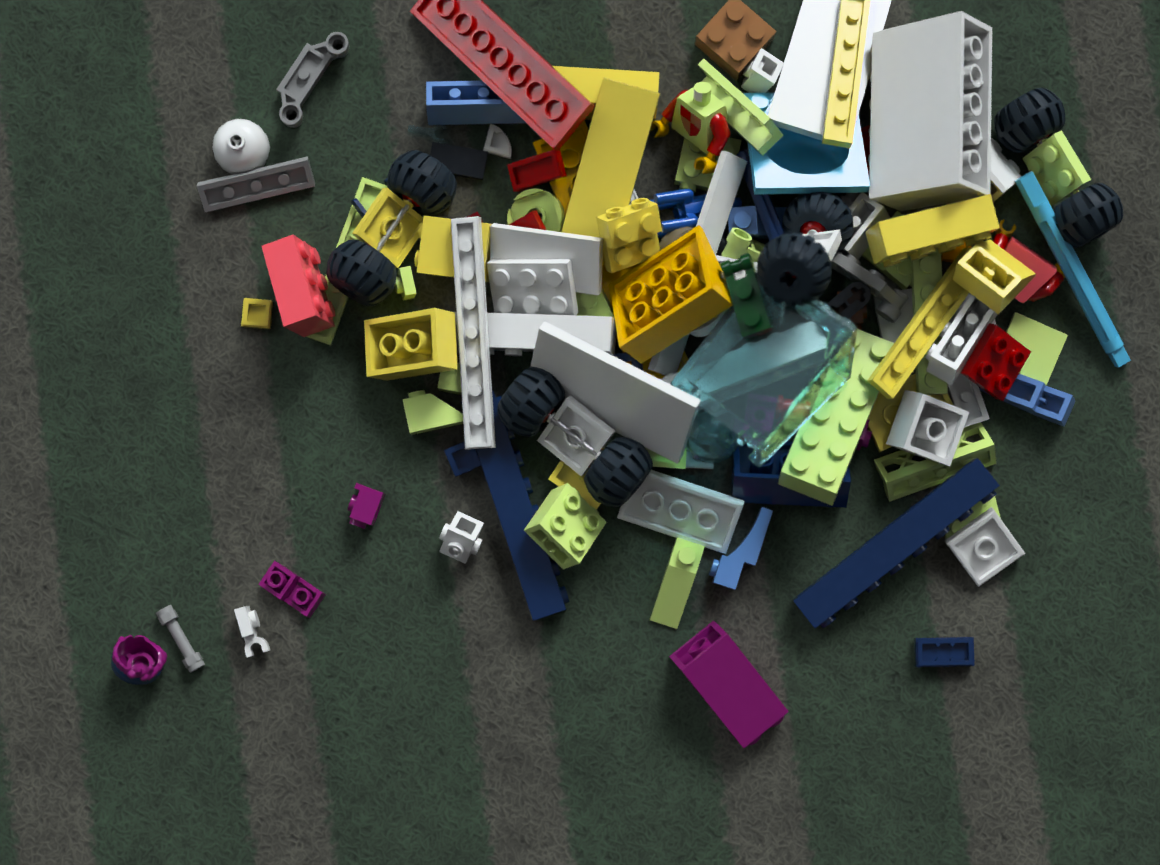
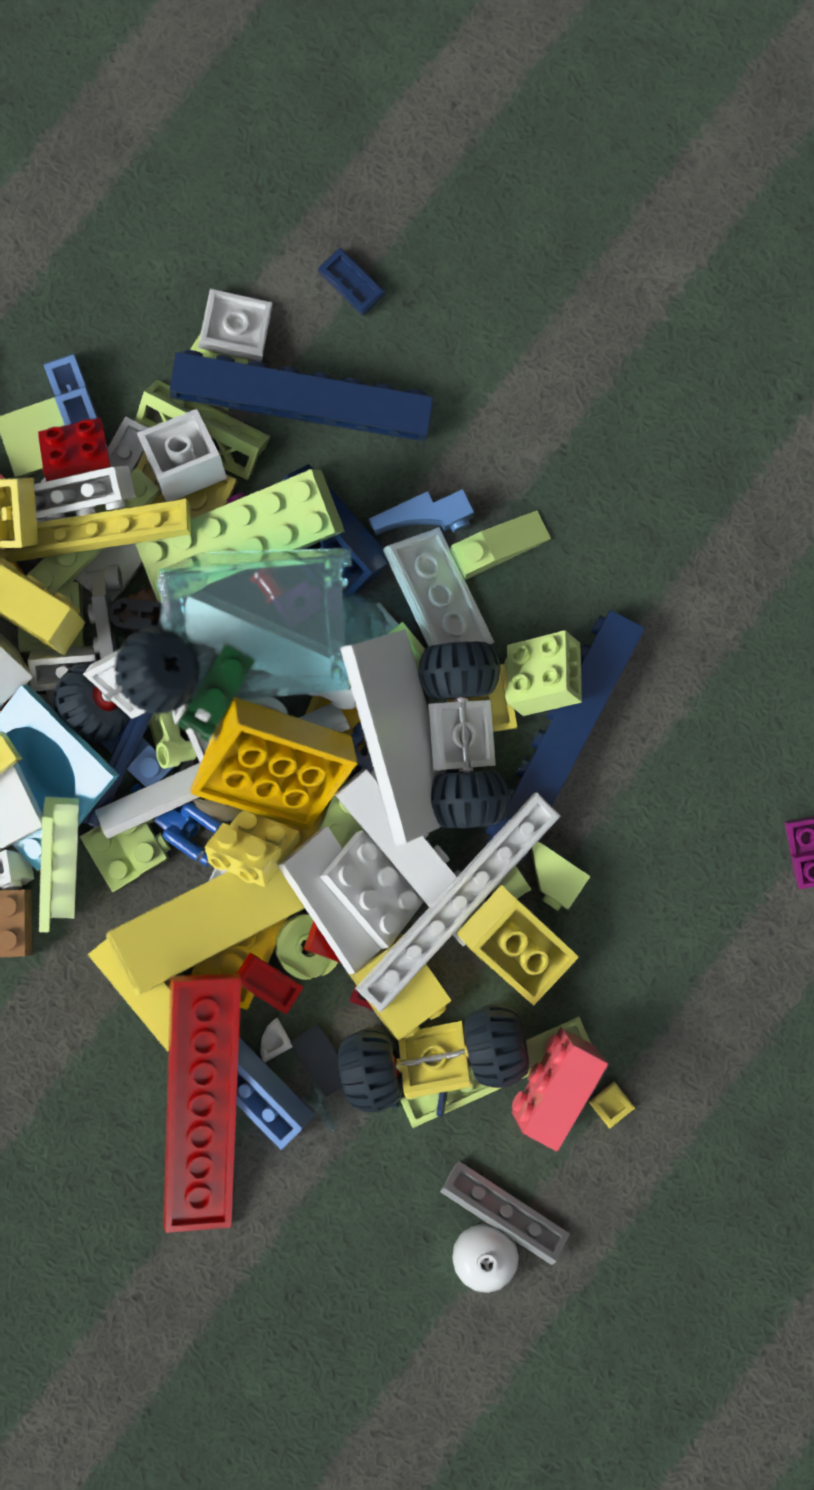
camera: 135 degrees left, 0 degrees up
(305, 75) = (370, 1263): light grey plate -> none
(365, 506) = (683, 856): magenta brick -> none
(405, 283) = (468, 1002): yellowish green plate -> none
(459, 543) = (633, 751): white brick -> none
(462, 459) = (570, 813): dark blue plate -> none
(700, 120) = (95, 882): torso -> none
(729, 684) = (543, 426): magenta slope -> none

